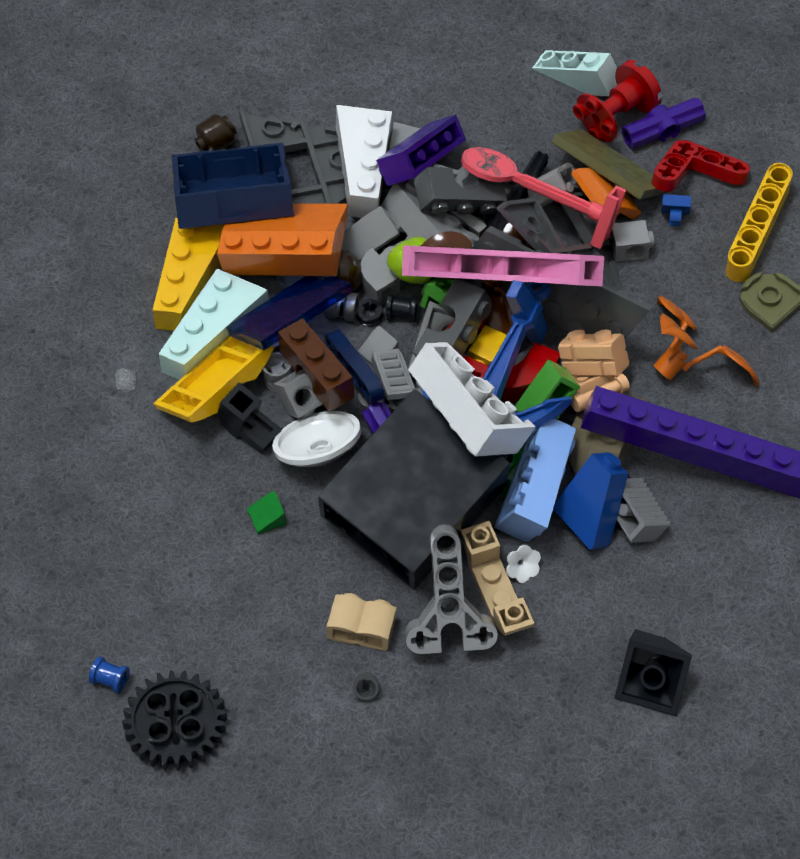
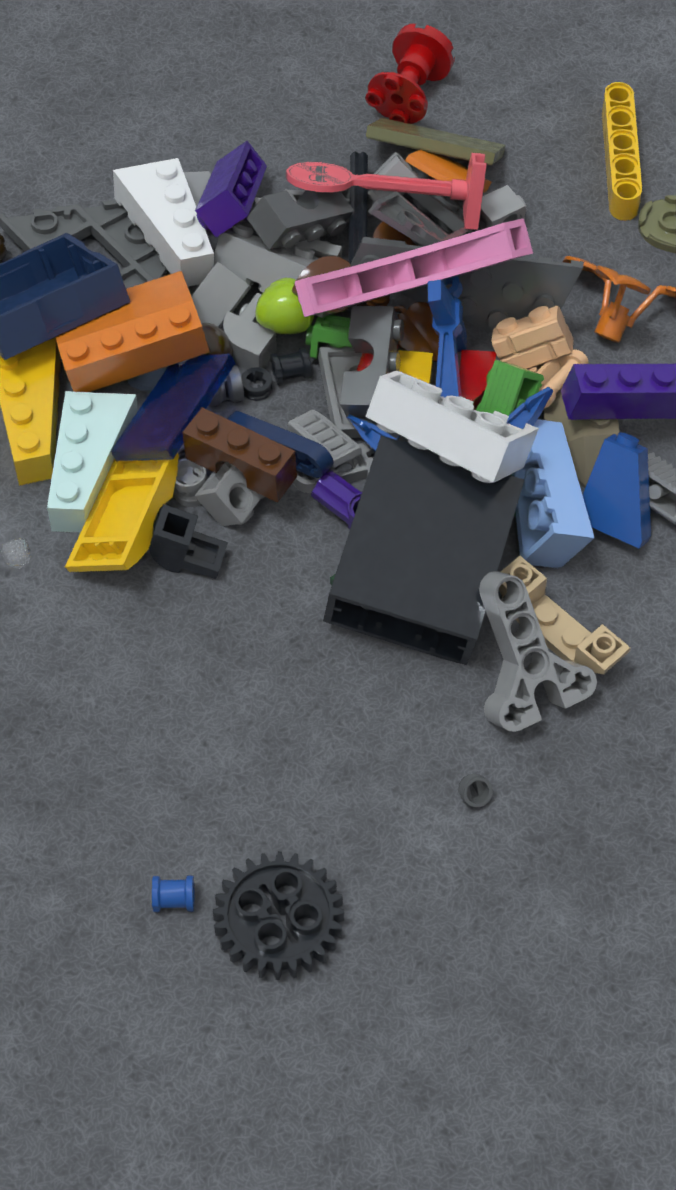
camera: 25 degrees left, 0 degrees up
(267, 513) = (259, 641): green slope -> none
(317, 439) = (277, 537): white dish -> none
(361, 621) = (432, 720): tan brick -> none
(377, 341) = (287, 408): light grey slope -> none
(523, 563) = (573, 590): white plant -> none
(584, 71) = (348, 58): light aqua slope -> none
(663, 123) = (466, 83): dark purple piece -> none
(675, 206) = (527, 163): blue tile -> none
(696, 157) = (509, 109): red beam -> none

